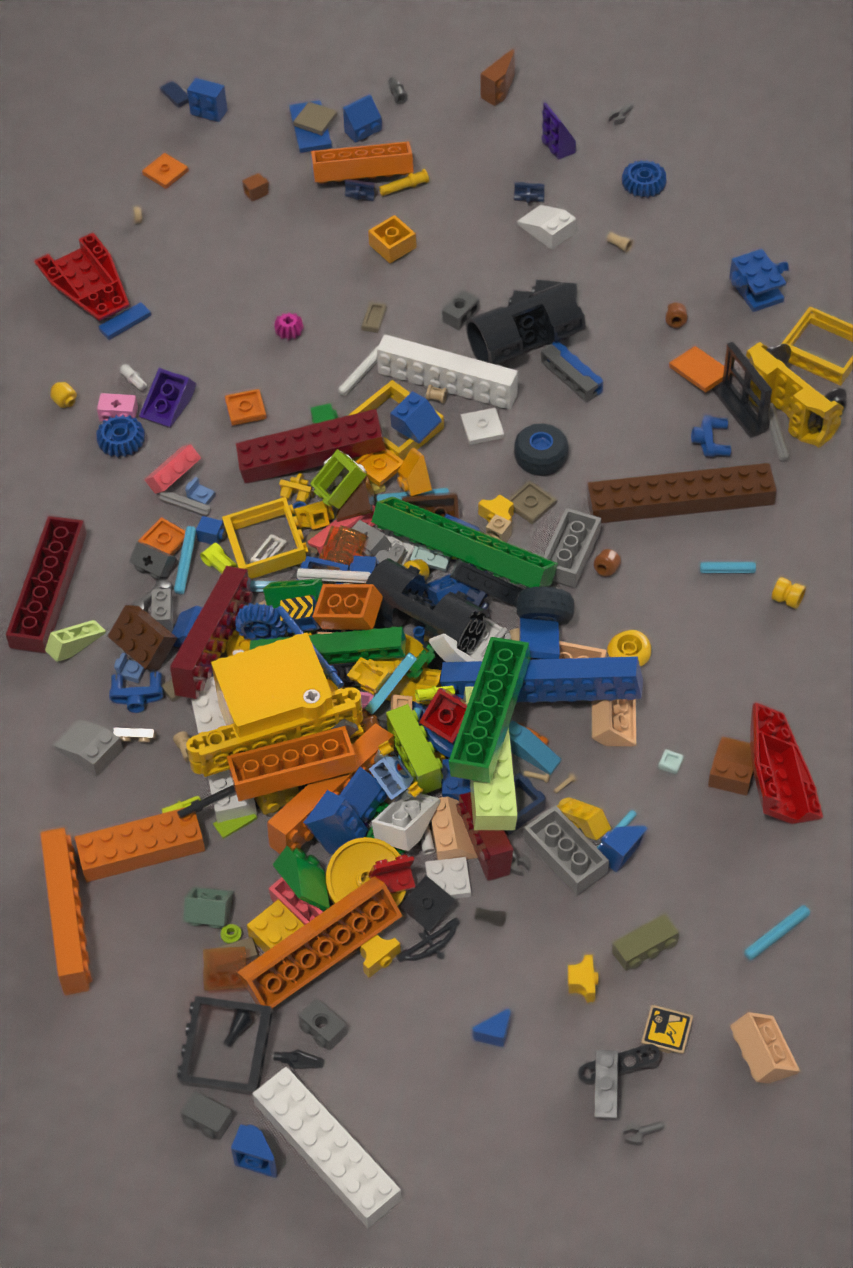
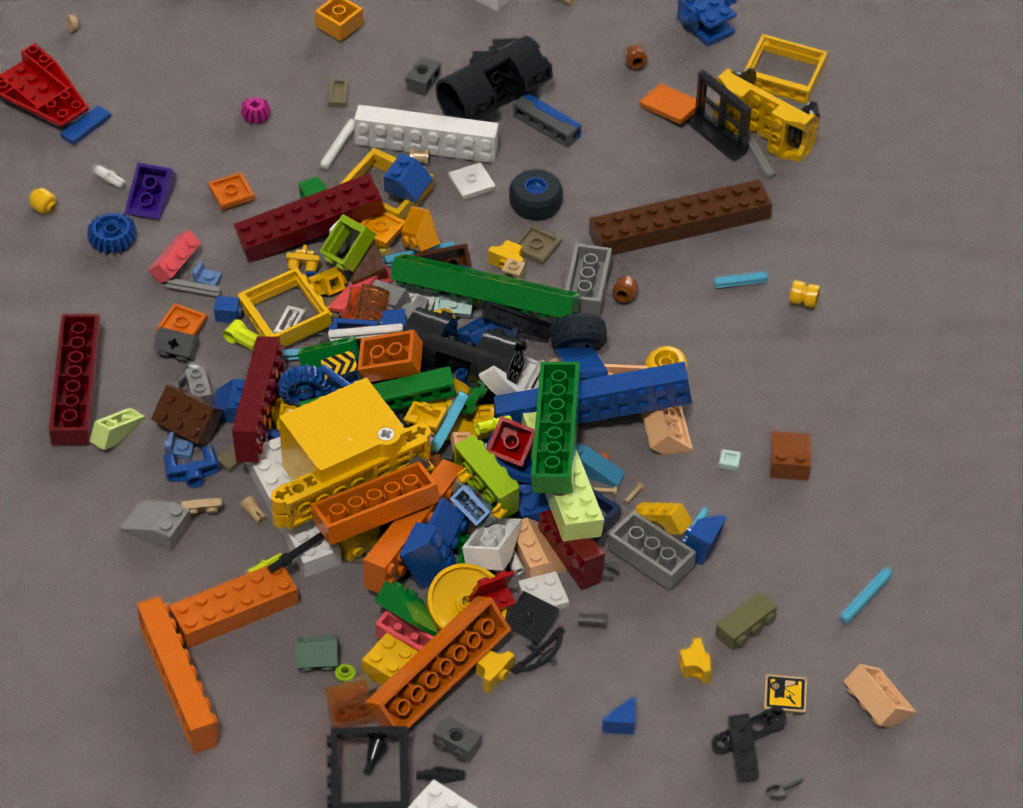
camera: 15 degrees left, 5 degrees down
(116, 404) = (98, 203): bright pink brick -> none
(185, 560) = (209, 346): medium azure axle -> none
(231, 826) = (317, 578): lime tile -> none
(705, 436) = (690, 163): blue connector -> none
(780, 769) = (835, 450): red wedge -> none

